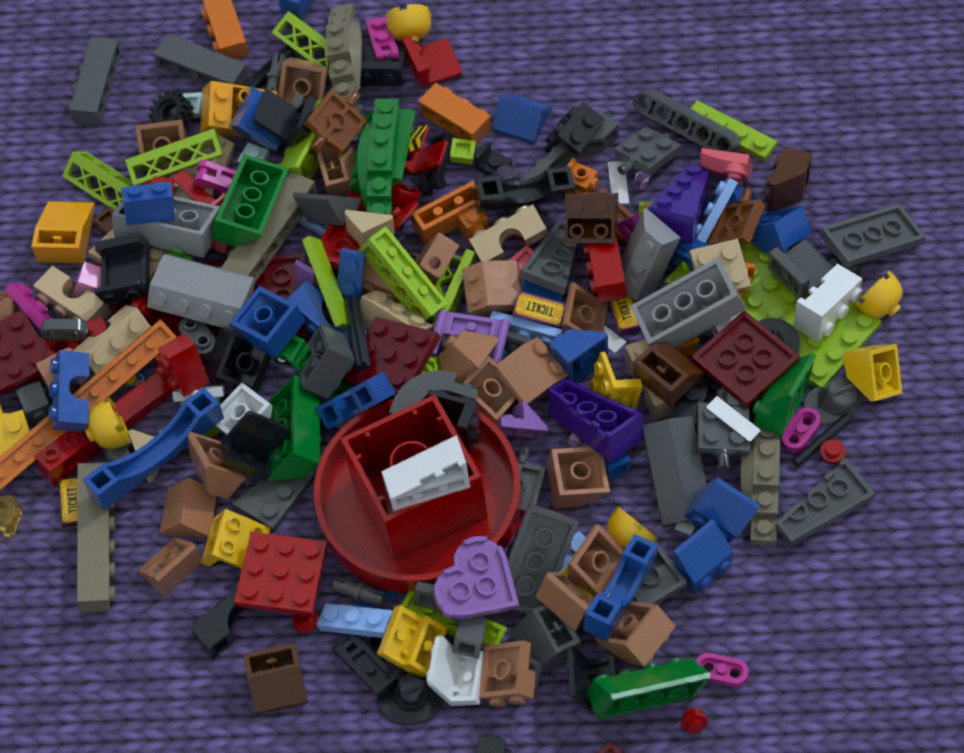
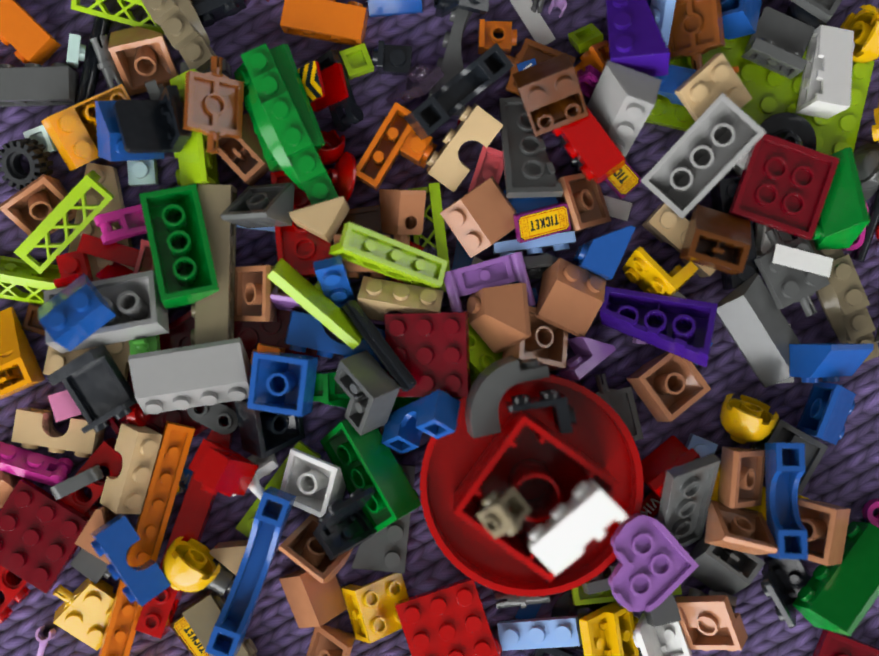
camera: 30 degrees left, 30 degrees up
(257, 59) = (76, 51): none -> light aqua plate
(280, 270) = (253, 294): none -> nougat slope
(378, 444) = (503, 512): none -> dark tan brick

